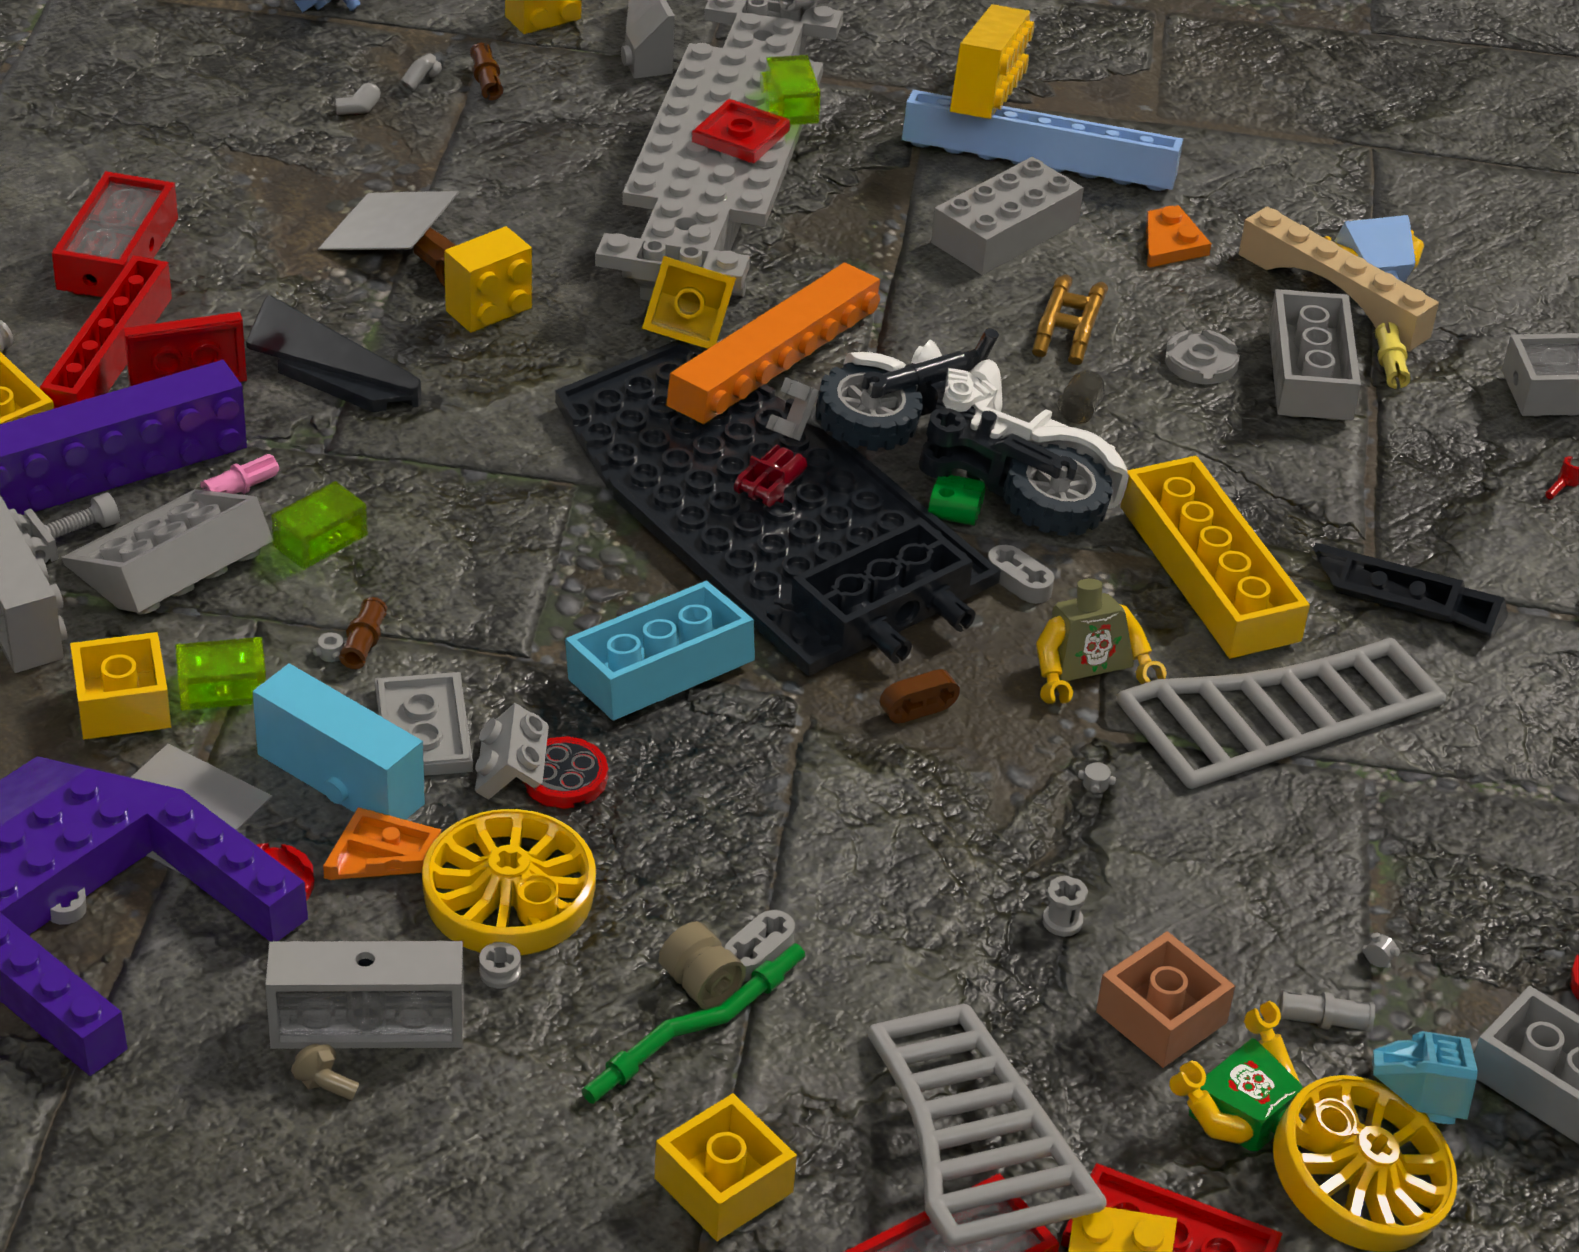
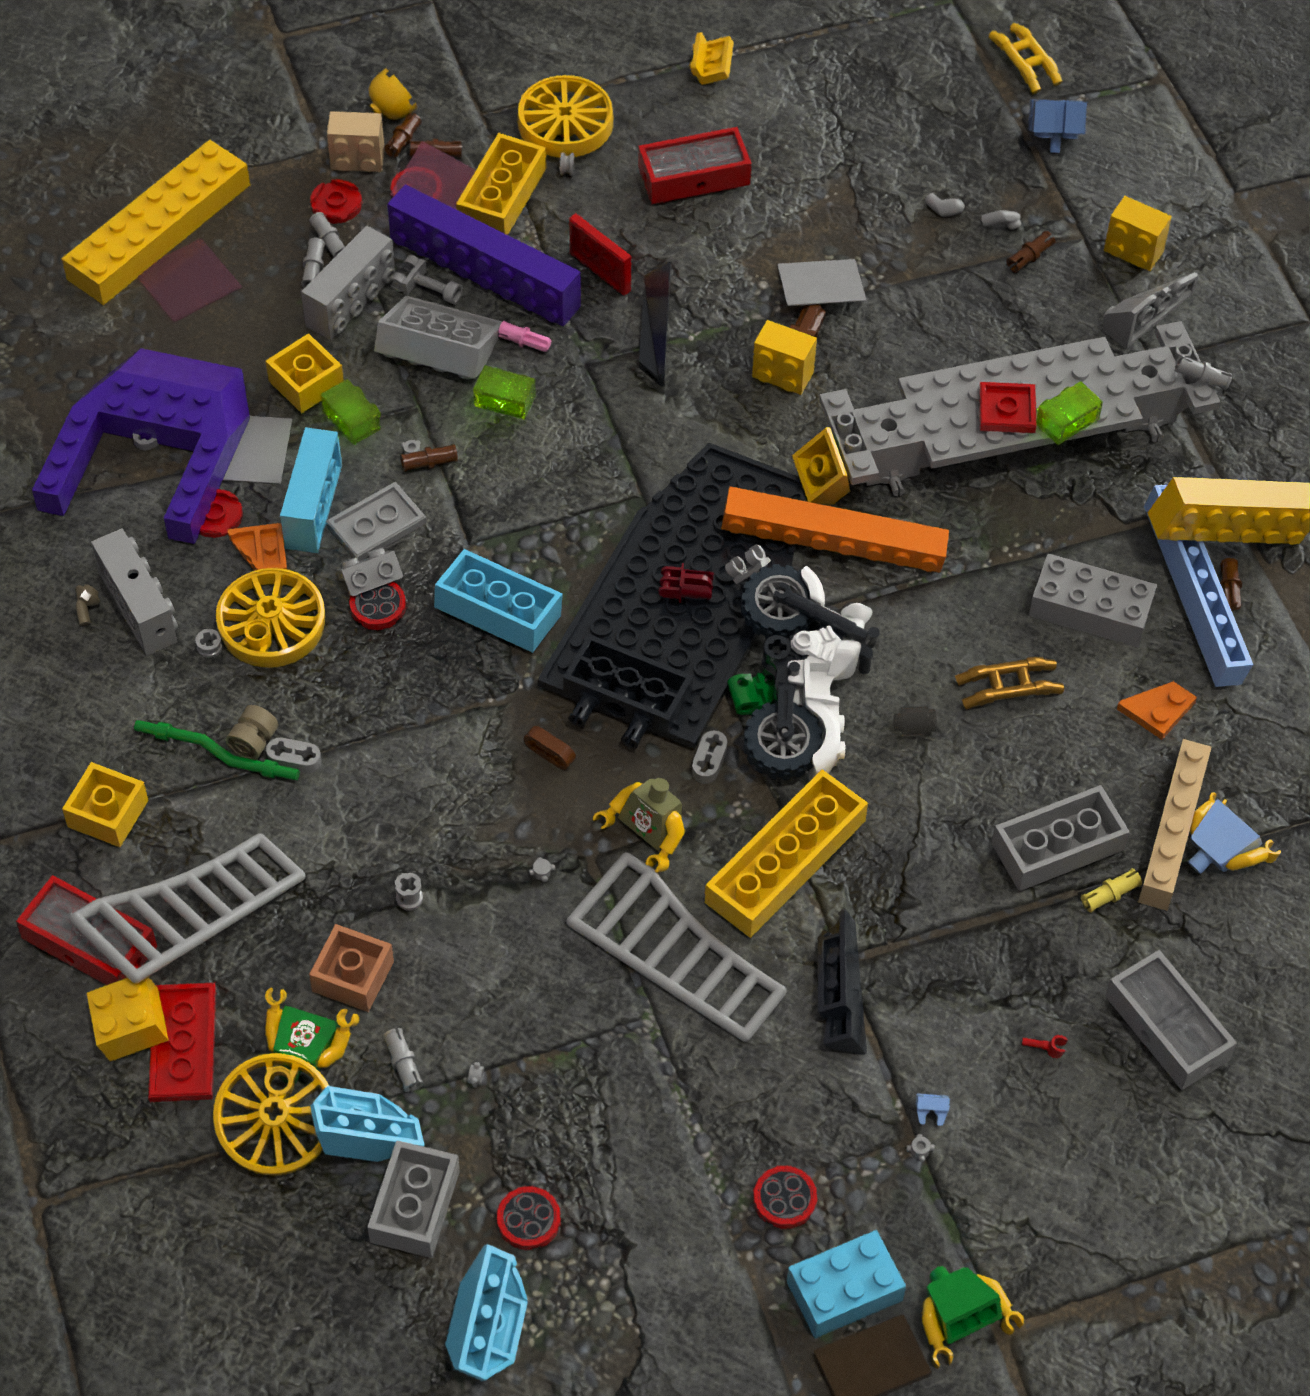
camera: 65 degrees right, 15 degrees up
(98, 350) = (603, 210): red brick -> none
(1202, 357) = (1026, 776): light grey tile -> none

